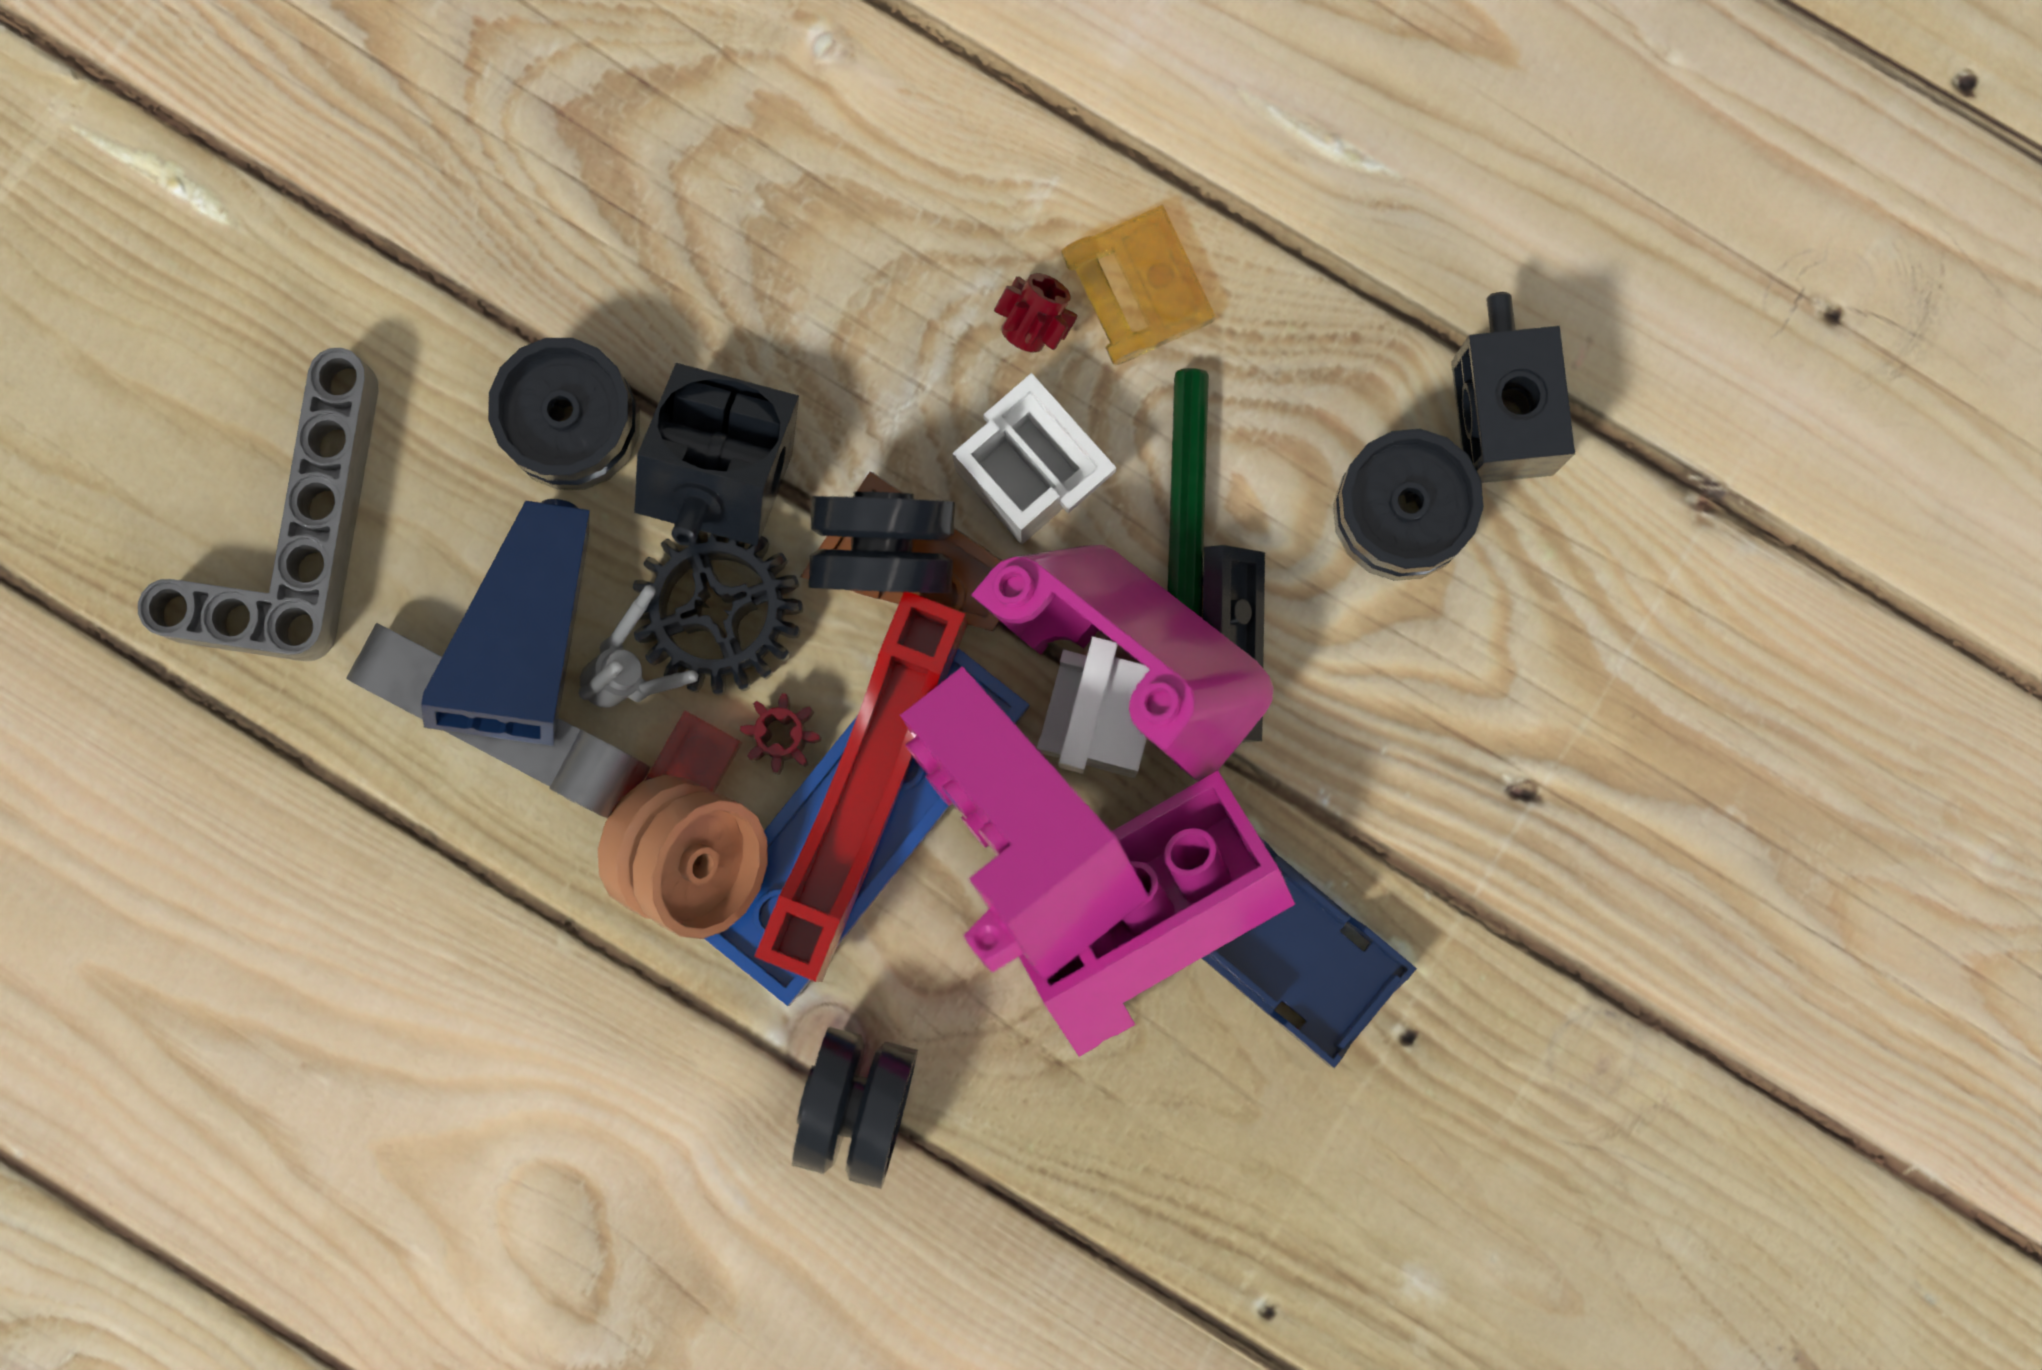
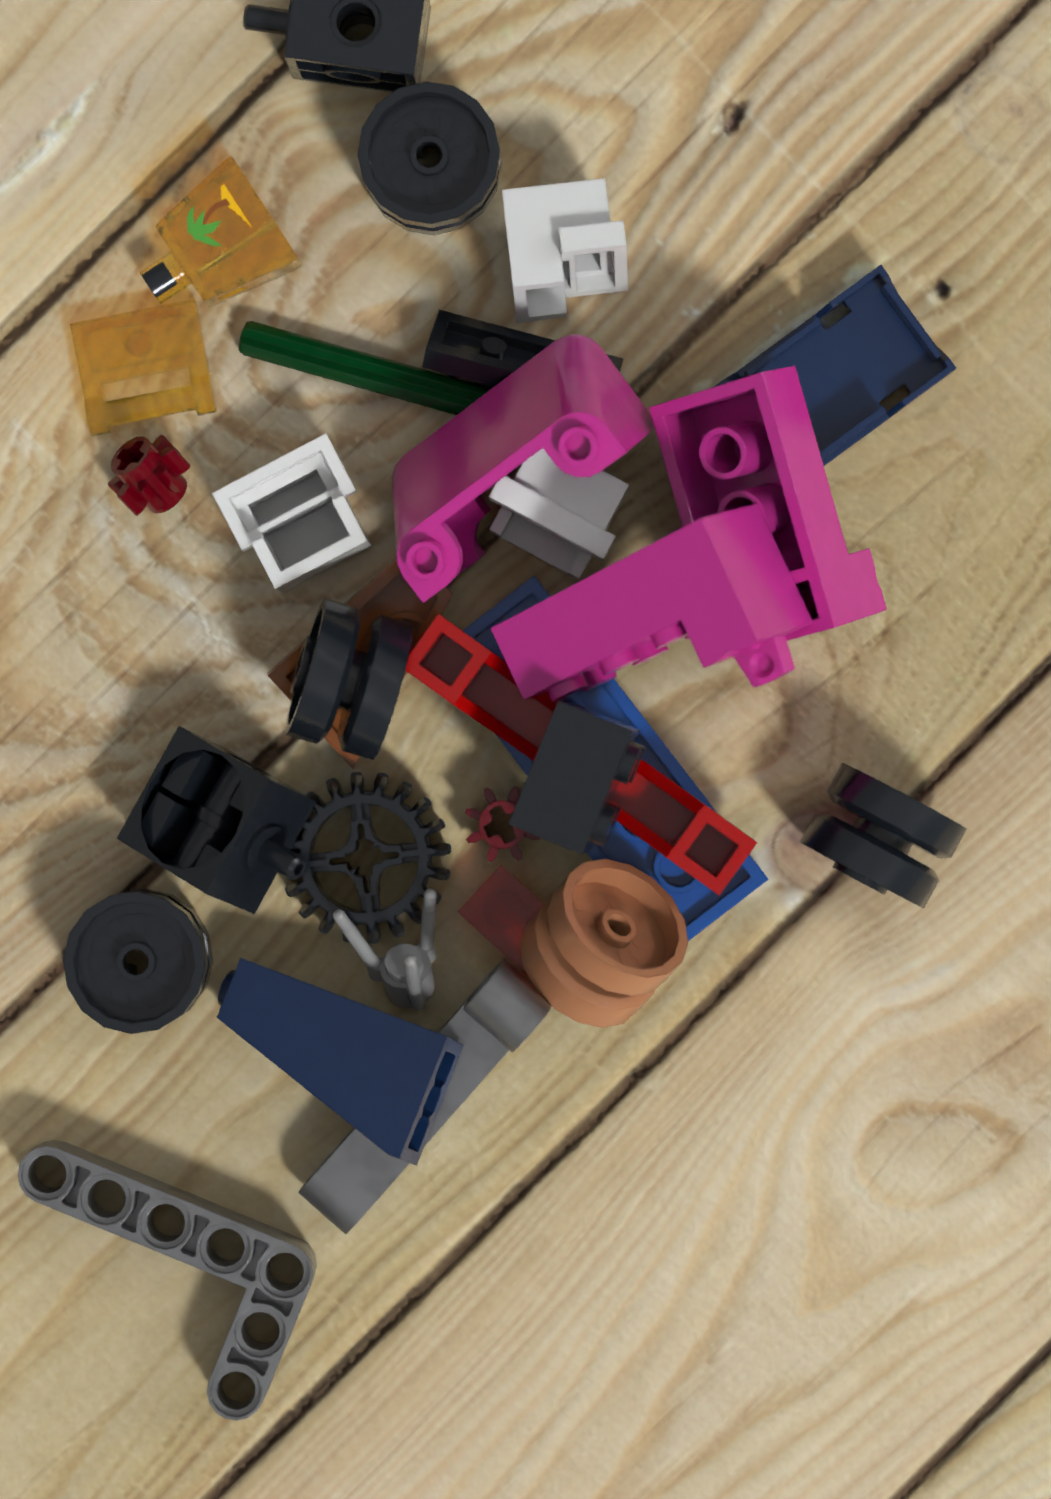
camera: 75 degrees left, 5 degrees up
(835, 786) = (577, 777): none -> black brick
(1277, 326) = (219, 241): none -> clear yellow torso
(1356, 649) = (562, 246): none -> white plate

